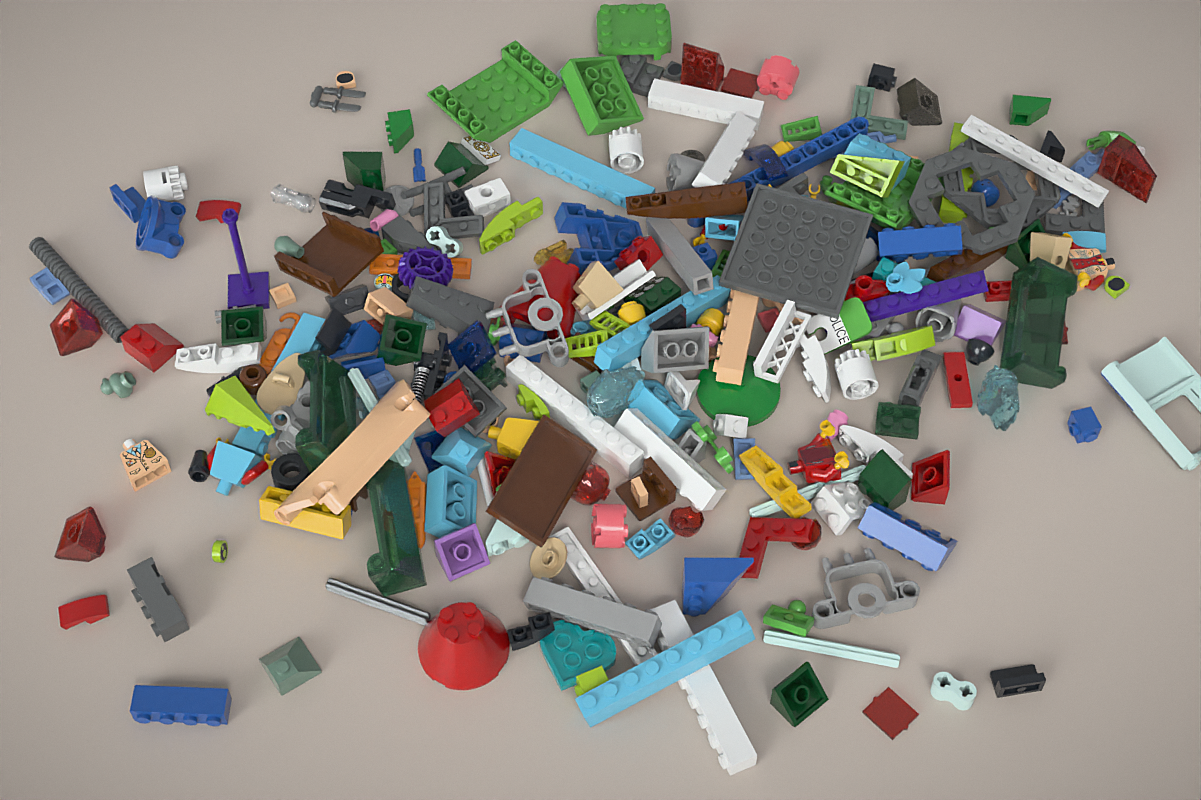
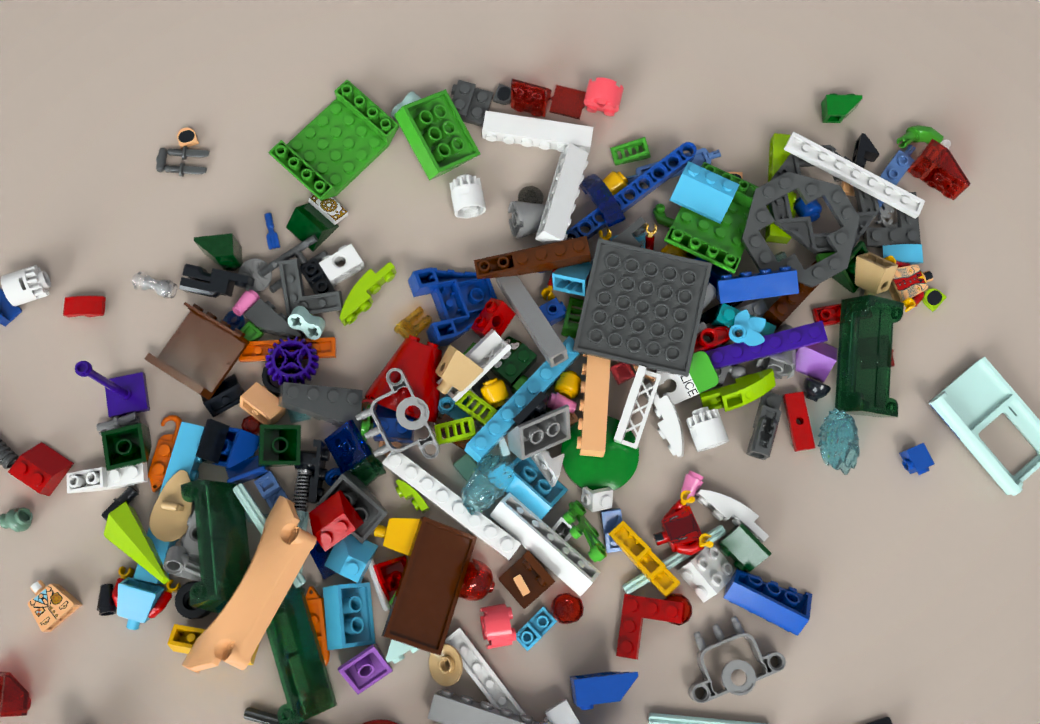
camera: 10 degrees left, 20 degrees up
(159, 227) = (28, 336): blue piece -> none
(219, 551) = (139, 693): lime tile -> none
(252, 378) = (139, 496): reddish brown head -> none
(282, 295) = (160, 396): light nougat tile -> none
(288, 246) = (158, 343): sand green cone -> none
(383, 280) = (254, 371): tile -> none
(400, 127) = (248, 192): green slope -> none
(576, 168) = (426, 223): medium azure brick -> none
(634, 30) = (460, 53): bright green plate -> none
(790, 619) = (669, 701): bright green plate -> none
(862, 108) = (685, 129): sand green plate -> none
(868, 173) = (701, 209): lime wedge -> none
(882, 77) = (701, 84): black brick -> none
(897, 420) = (747, 473): clear green bracket -> none
(918, 104) = (737, 112): clear smoke slope -> none
(931, 479) = (785, 533): red slope -> none

